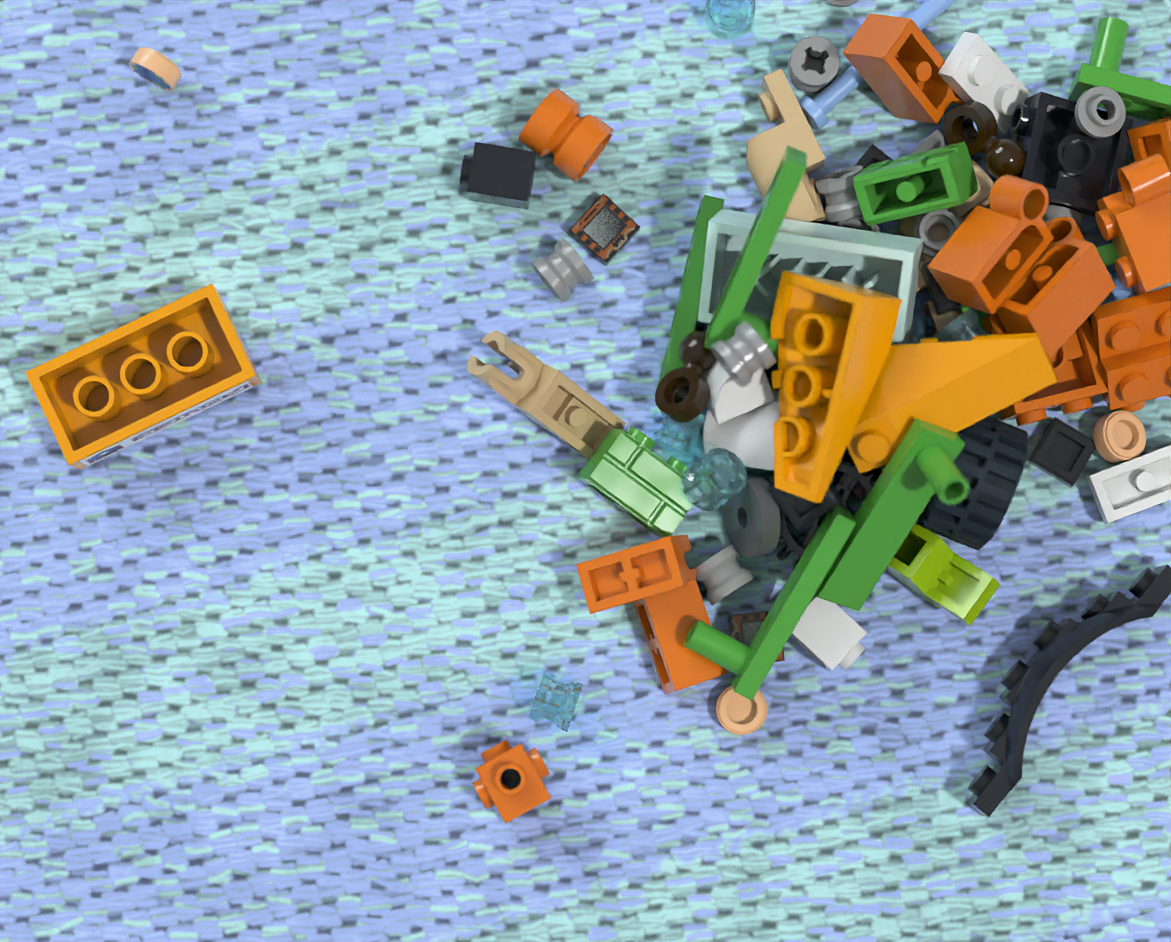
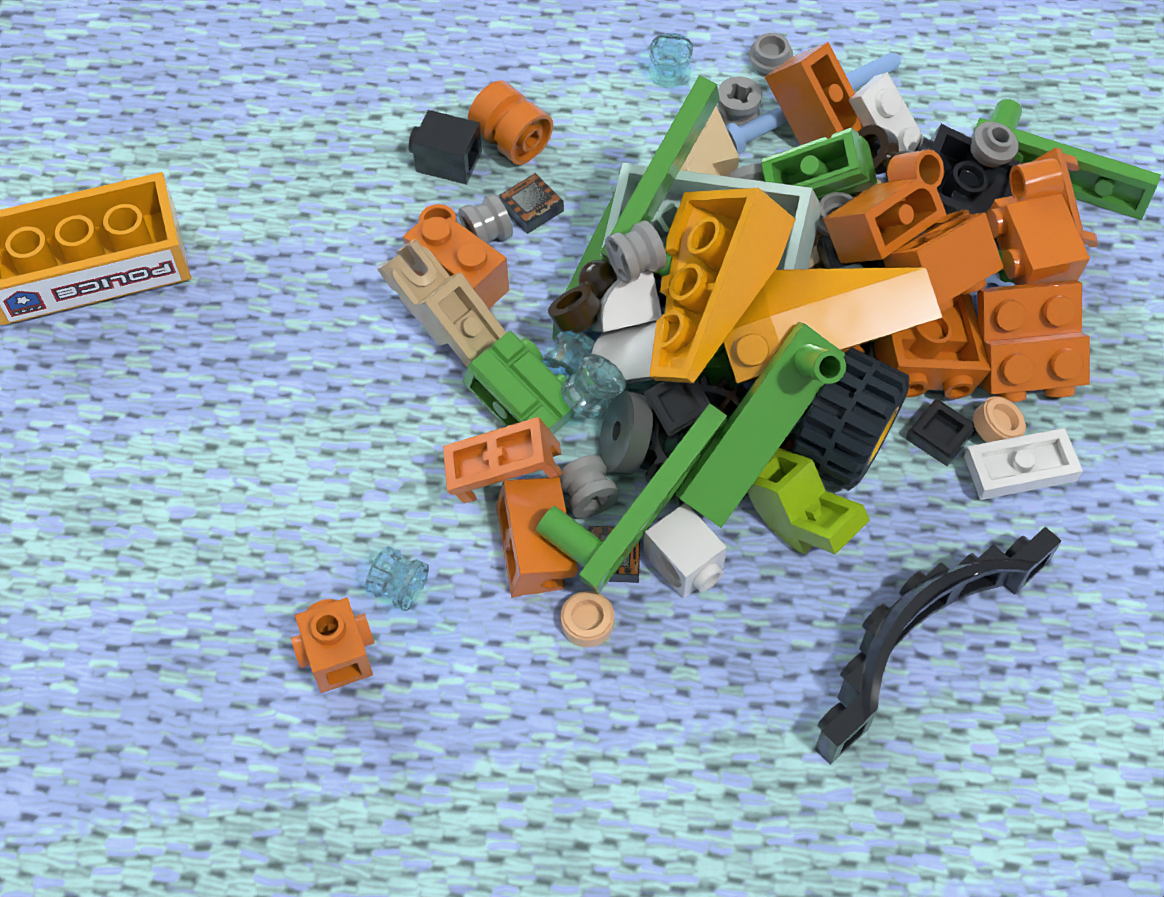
camera: 10 degrees right, 25 degrees down
(155, 68) = (171, 42): light nougat tile -> none
(541, 326) = (461, 252): none -> orange hinge

